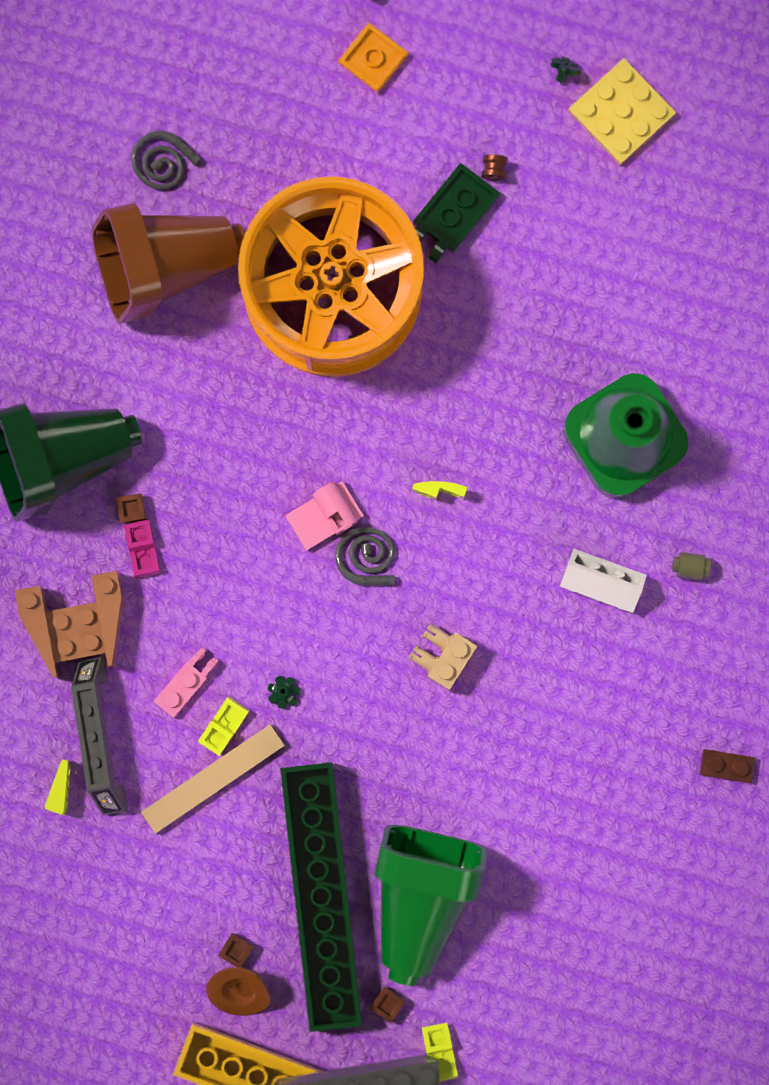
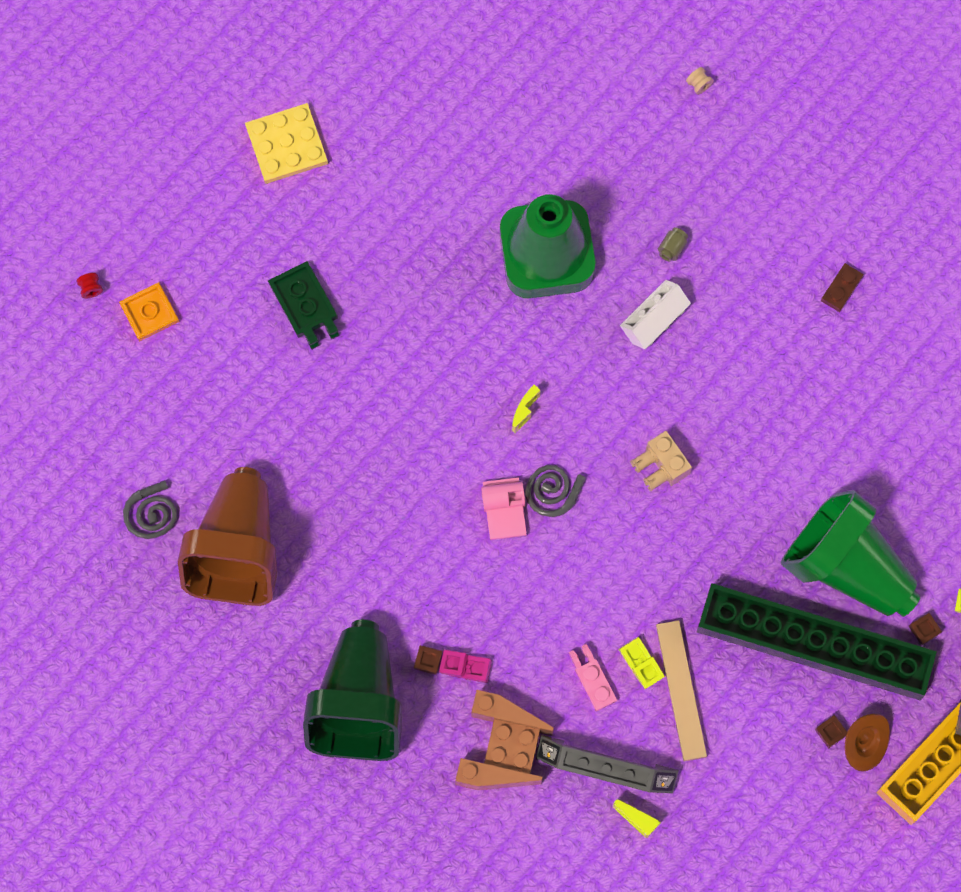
camera: 65 degrees left, 10 degrees down
(288, 696) = (630, 606): dark green plant -> none
(349, 204) = (325, 343): light orange wheel -> none
(494, 167) = (284, 255): copper wheel -> none
(565, 68) = (231, 169): plant -> none

